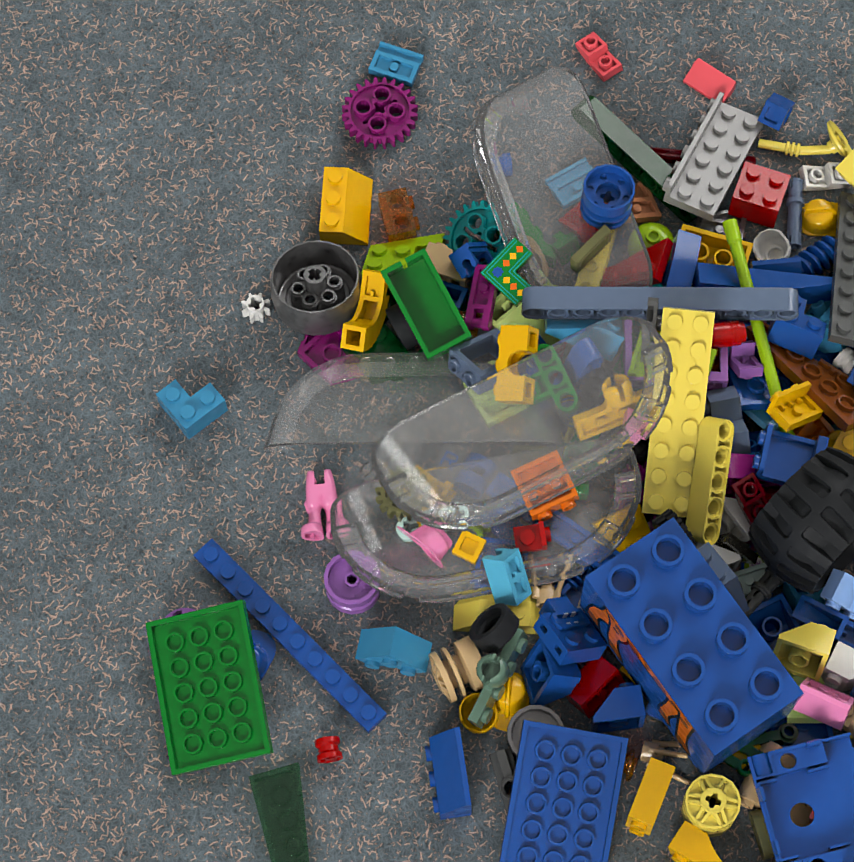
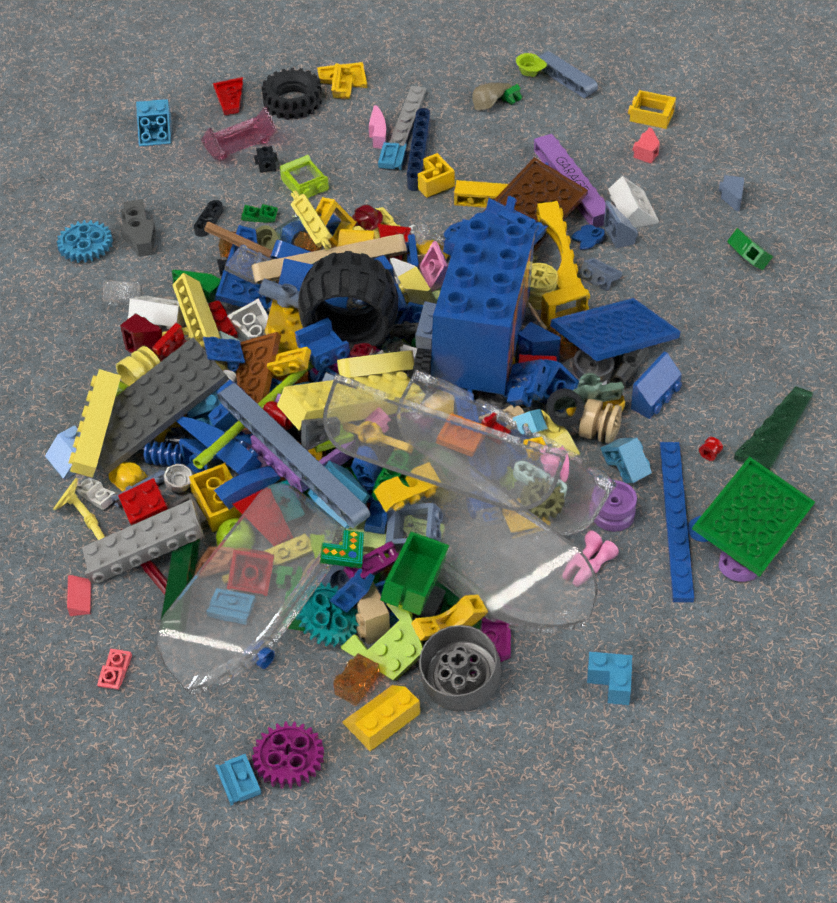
camera: 135 degrees left, 20 degrees down
(259, 314) = (507, 701): white gear -> none
(590, 249) = (288, 515): olive tile -> none
(611, 186) = (245, 524): blue wheel -> none
(776, 111) = (72, 539): blue brick -> none

